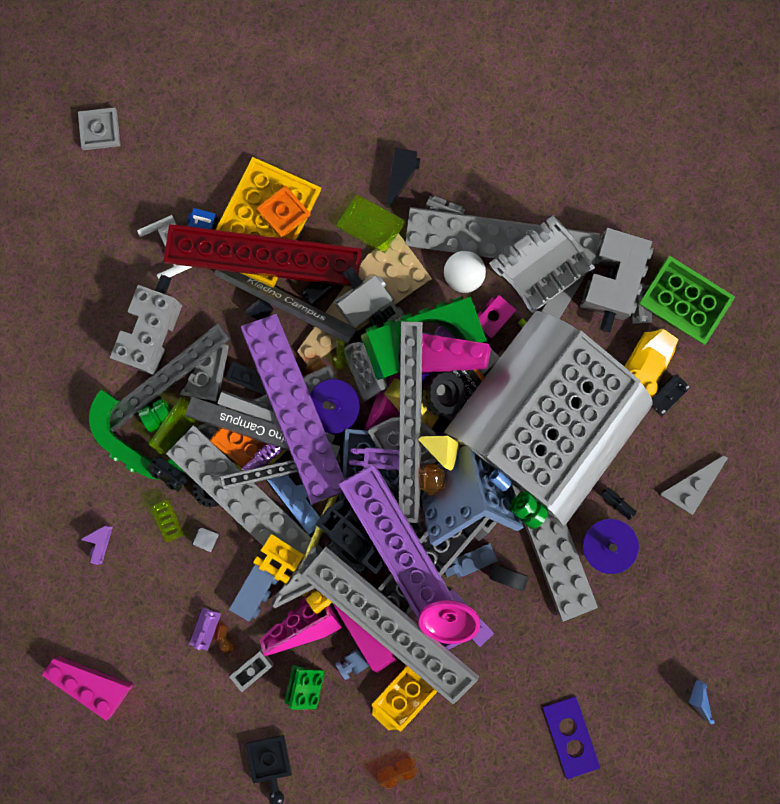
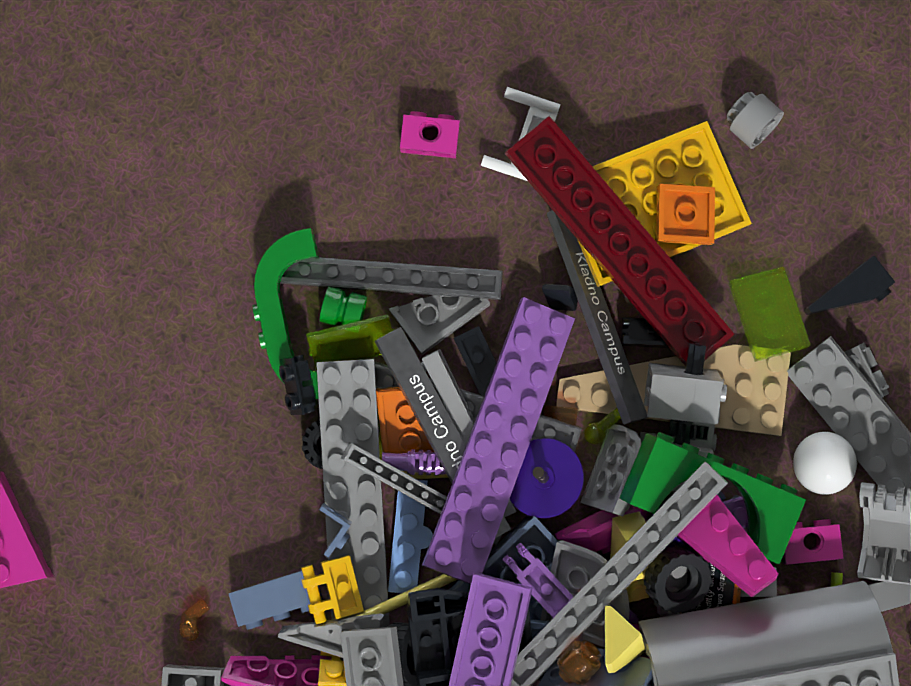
camera: 45 degrees right, 0 degrees up
(100, 539) = (161, 386): medium lavender slope -> none
(108, 289) = (442, 146): none -> dark pink brick
(155, 316) = (442, 203): light grey piece -> none
(174, 518) = (267, 416): clear neon green slope -> none
(202, 219) = (588, 140): blue brick -> none
(205, 539) = (272, 492): slope -> none
(205, 629) = (182, 589): medium lavender hinge -> none
(259, 531) = (341, 537): none -> sand blue bracket
(274, 134) = (753, 118): none -> light grey piece

